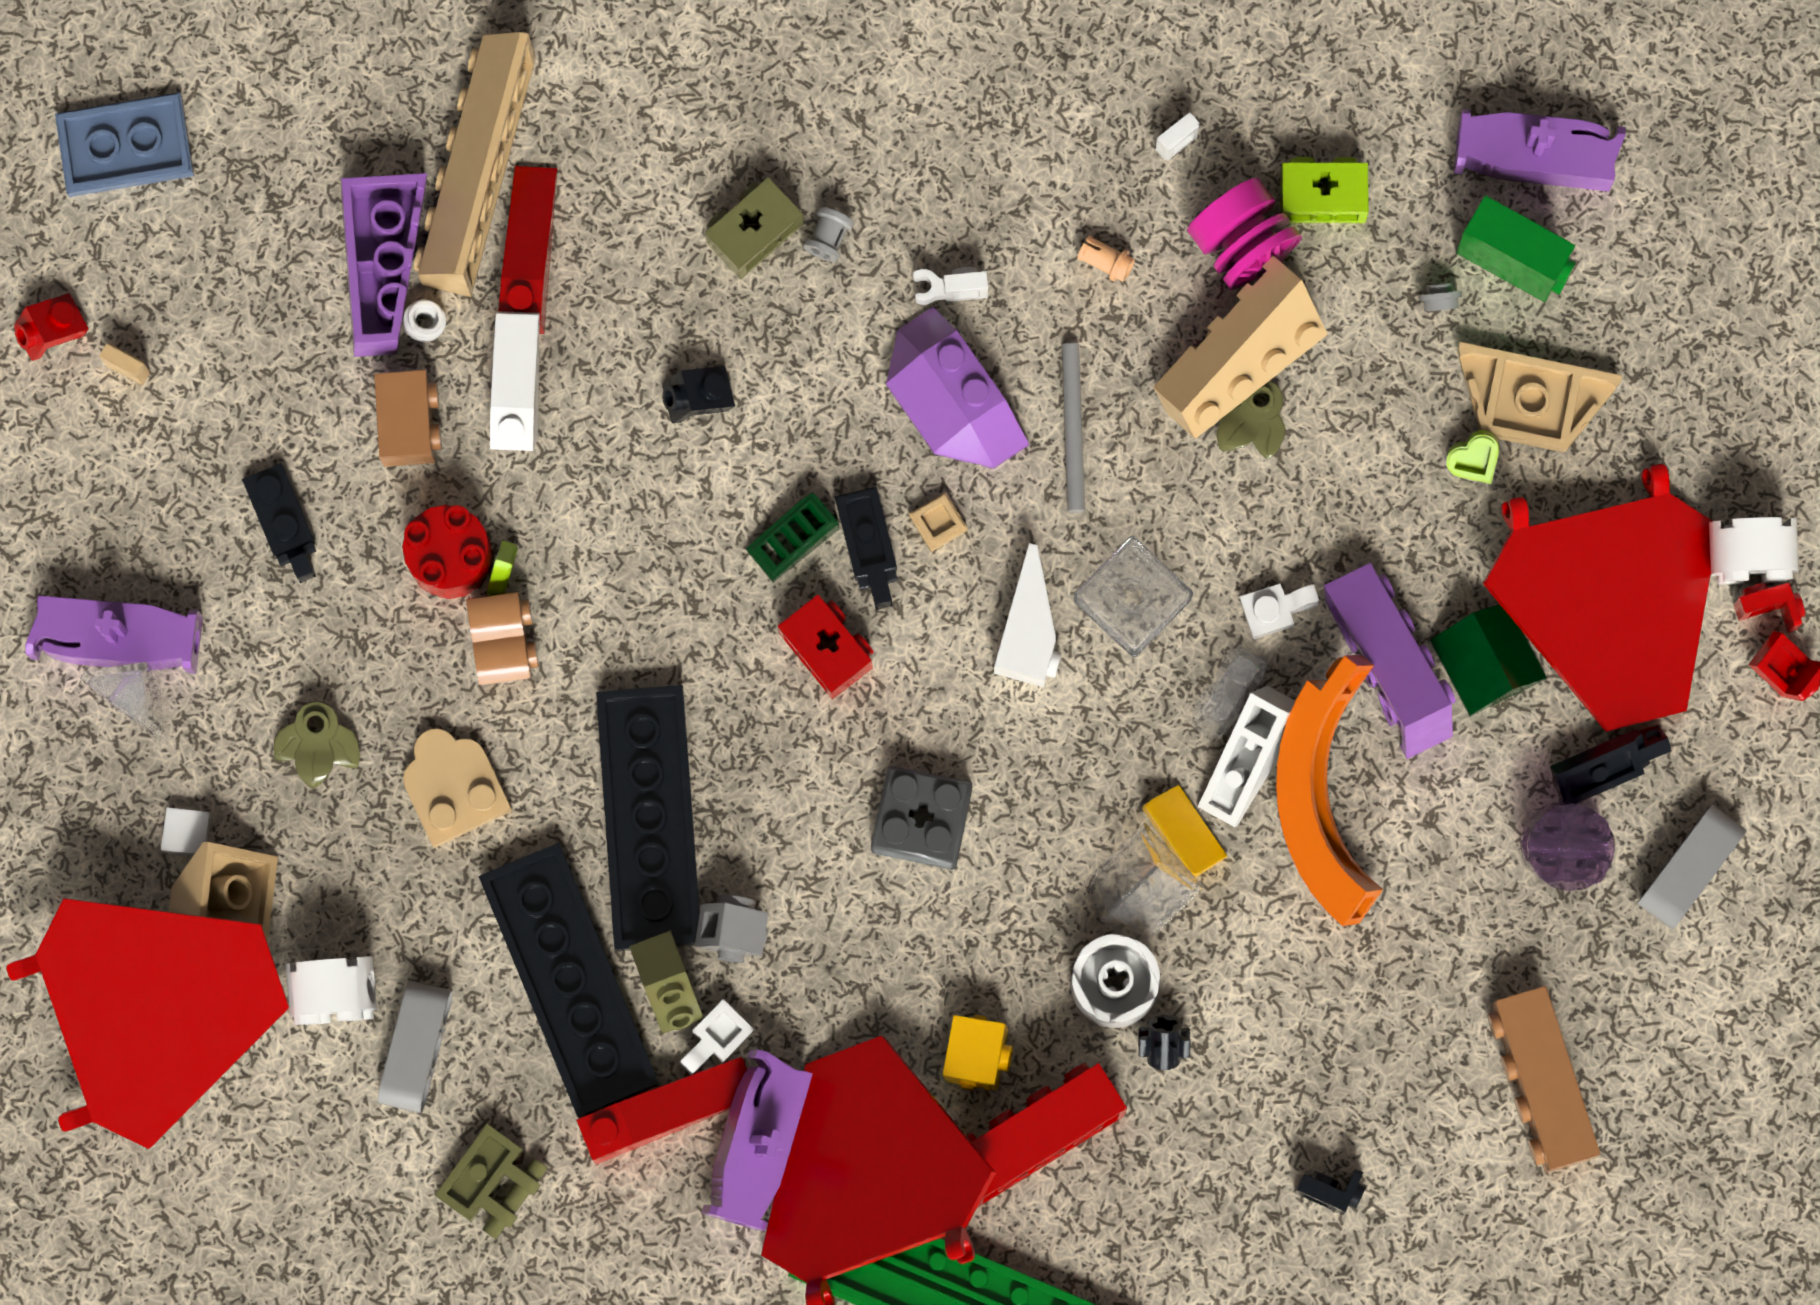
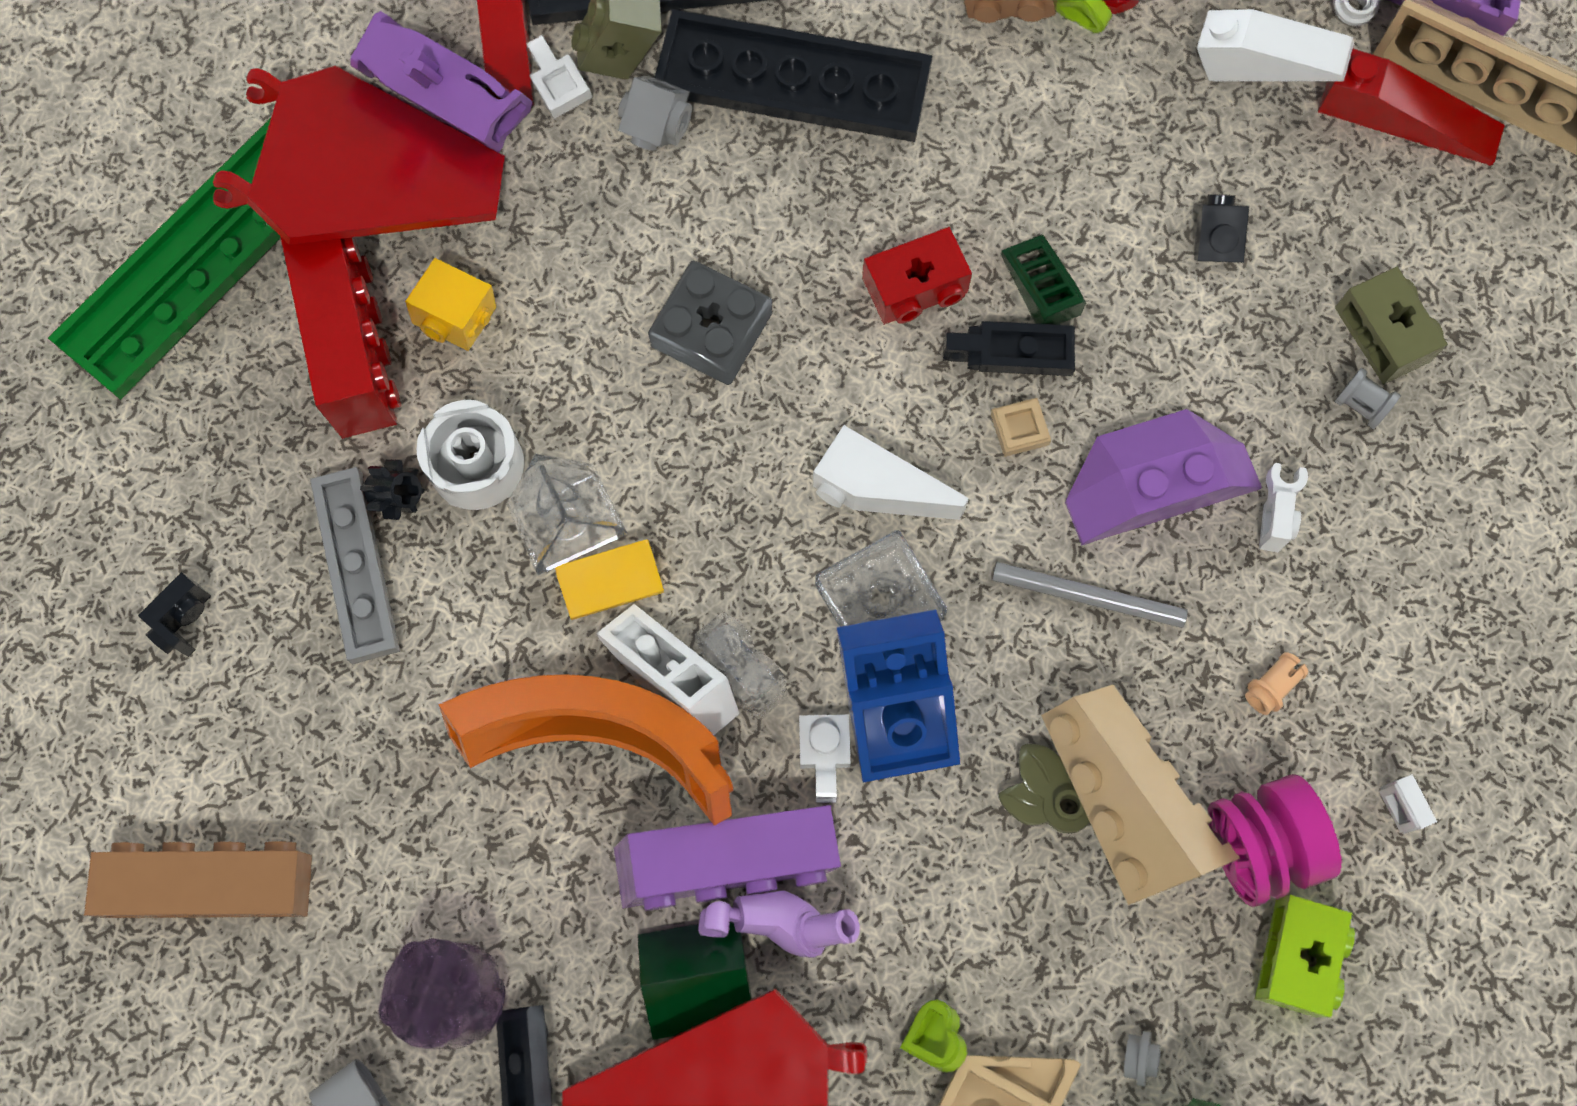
camera: 105 degrees right, 5 degrees down
(1214, 556) = (899, 695): none -> blue slope
(1238, 1055) = (354, 566): none -> light grey plate
(1424, 596) = (784, 920): none -> lavender arm

